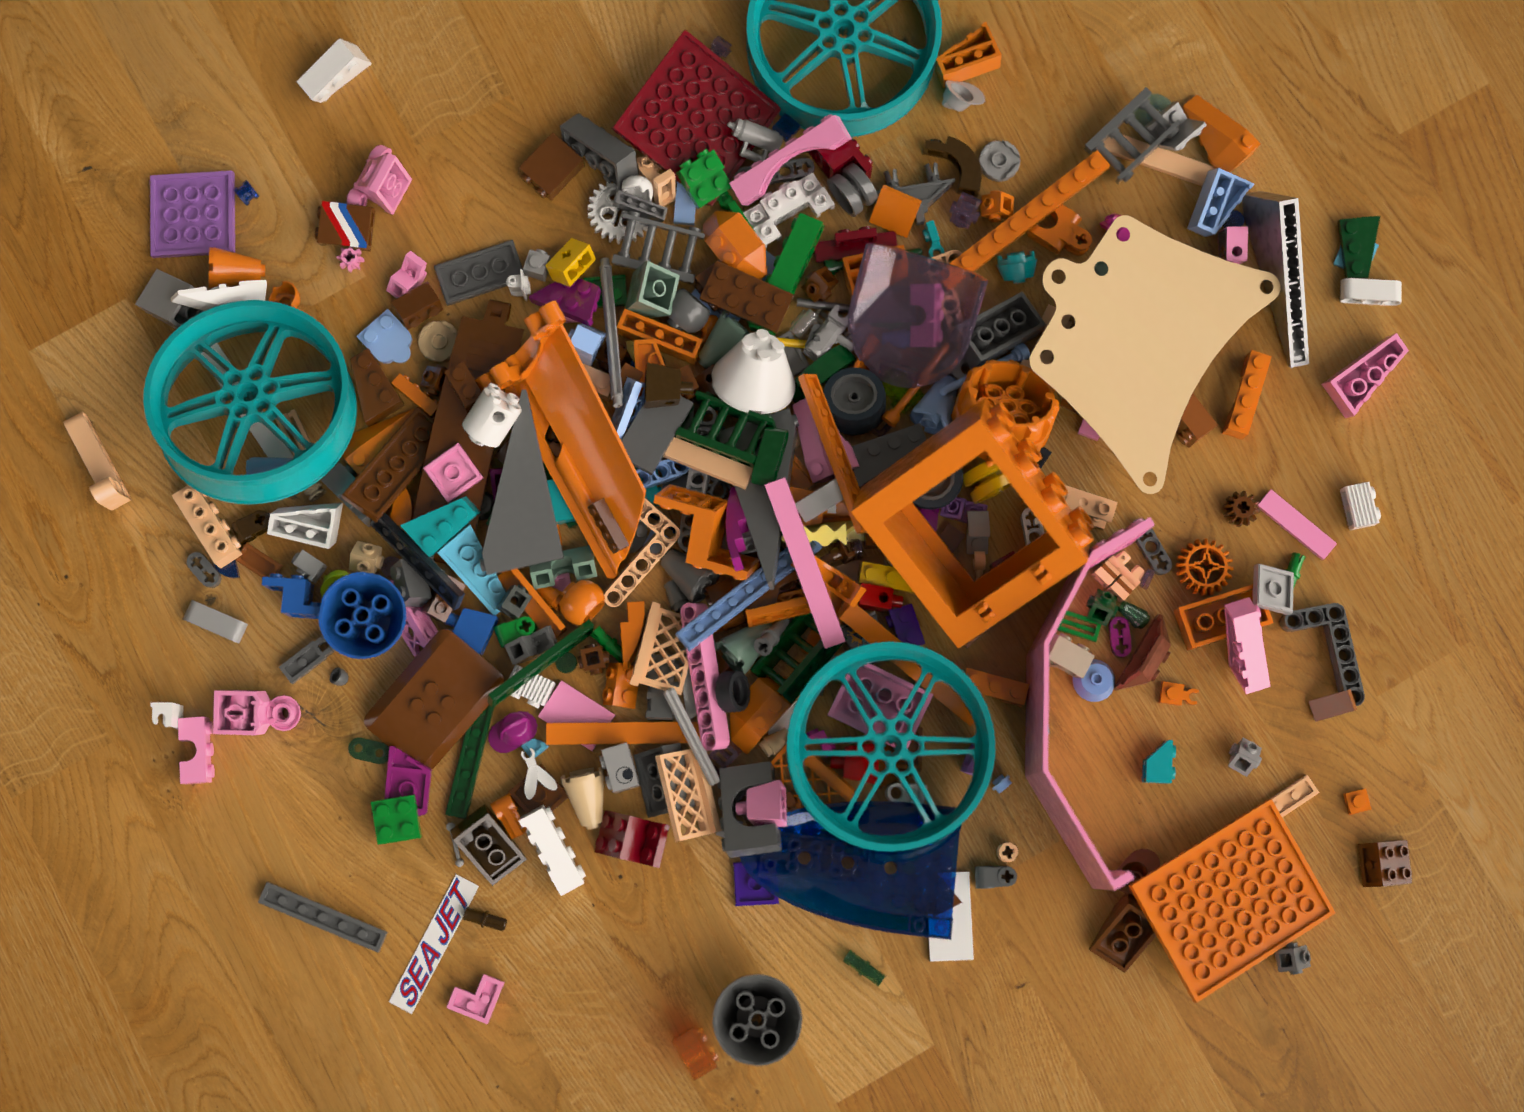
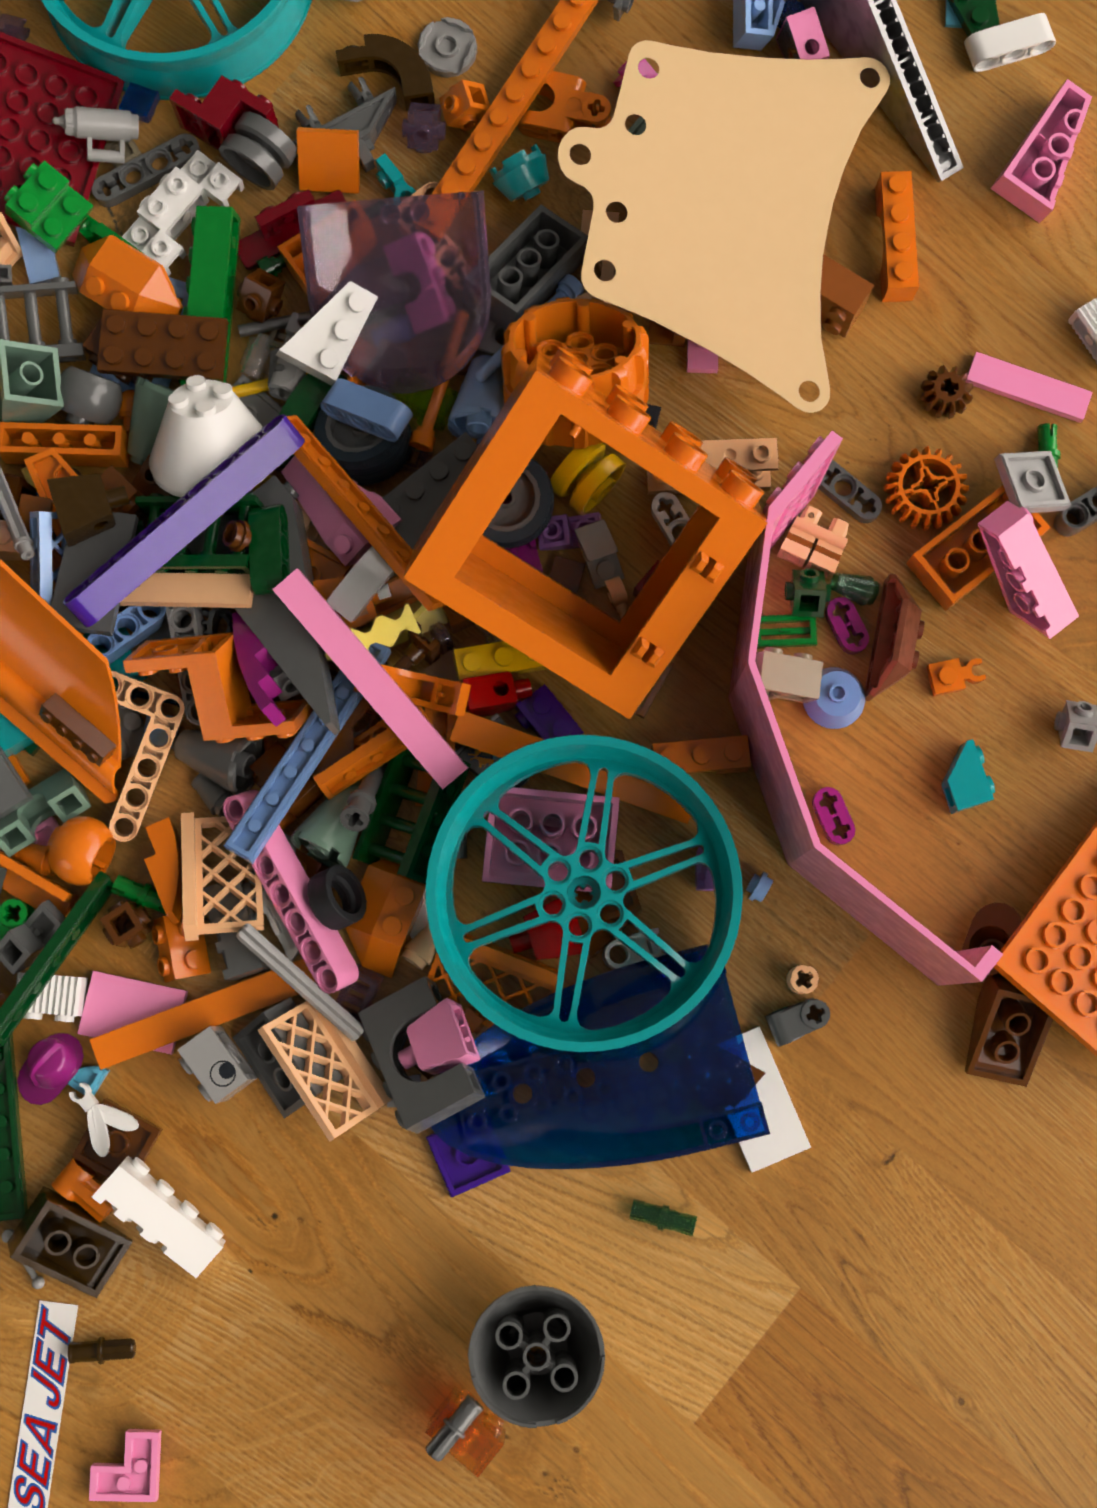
camera: 15 degrees left, 0 degrees up
(566, 663) = (92, 944): clear green tile -> none
(586, 795) = (183, 1120): tan cone -> none
(632, 838) = (269, 1158): dark red bracket -> none
(690, 1045) = (454, 1428): none -> dark grey axle
(724, 420) = (184, 521): none -> beam
(753, 441) = (237, 535): none -> reddish brown plate
(754, 183) = (189, 83): bright pink arch -> none
(815, 734) = (477, 913): dark pink bracket -> none
(858, 331) = (330, 335): none -> white wedge
(862, 388) = (366, 410): none -> medium blue beam
(1060, 757) = (840, 813): none -> magenta beam
(1147, 577) = (854, 532): tile -> none

